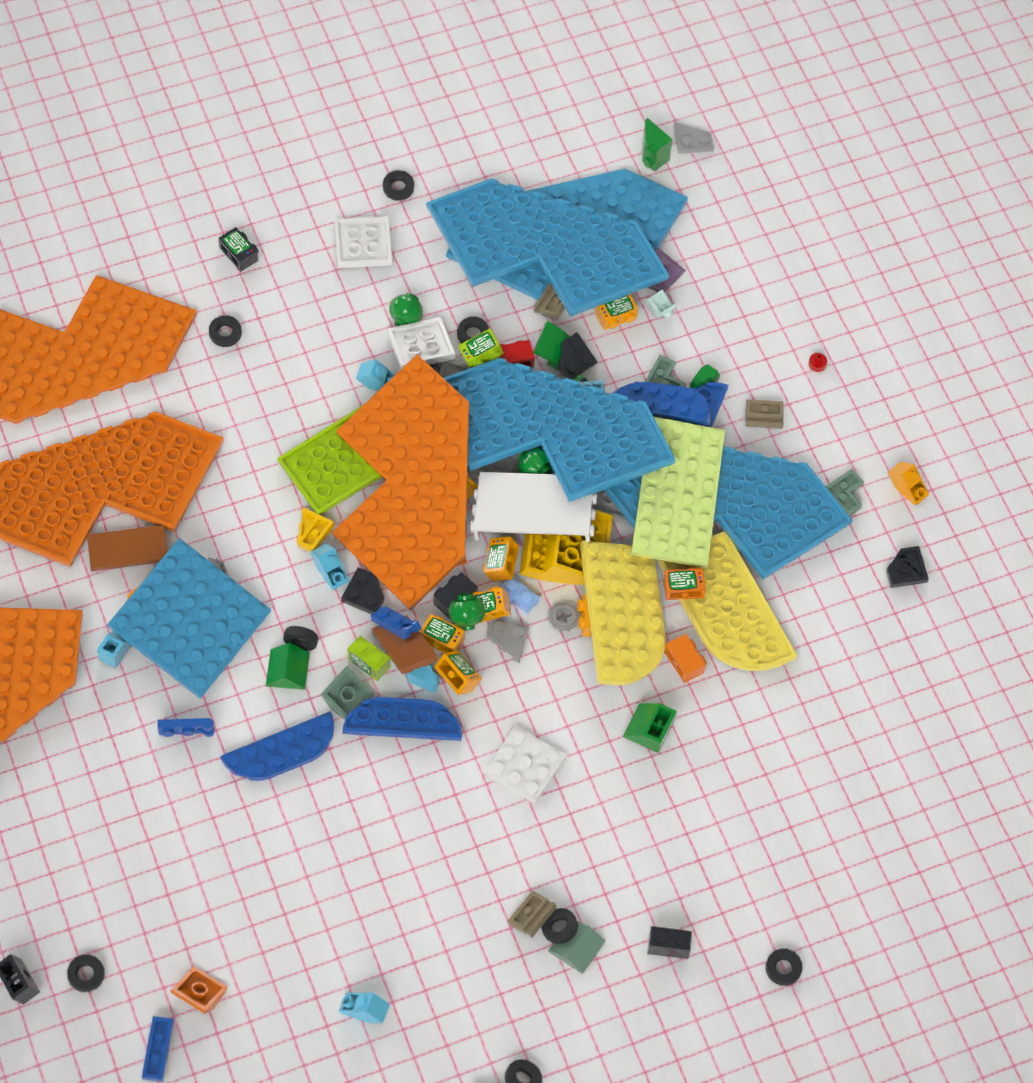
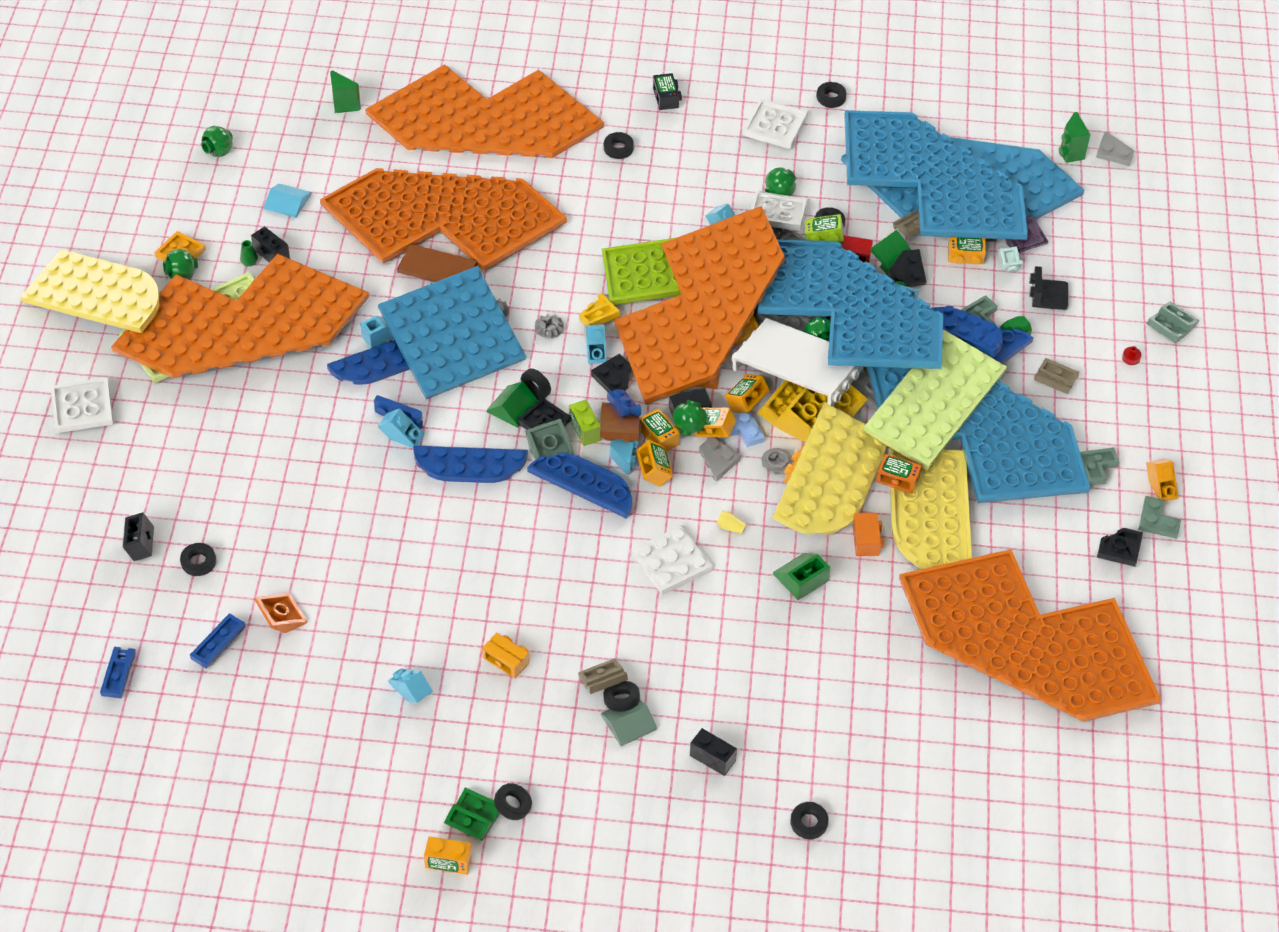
camera: 30 degrees right, 10 degrees down
(125, 686) = (370, 364): none -> blue plate
(198, 744) = (401, 428): none -> medium azure slope
(280, 569) = (551, 331): none -> light grey gear
(323, 664) = (542, 412): none -> black plate
(433, 934) = (506, 654): none -> light orange brick
(558, 702) = (730, 522): none -> light yellow cone
(712, 325) = (1047, 293): none -> black bracket
(835, 309) = (1172, 322): none -> sand green slope
(915, 705) = (1066, 658): none -> orange plate
(919, 528) = (1153, 520): none -> sand green plate

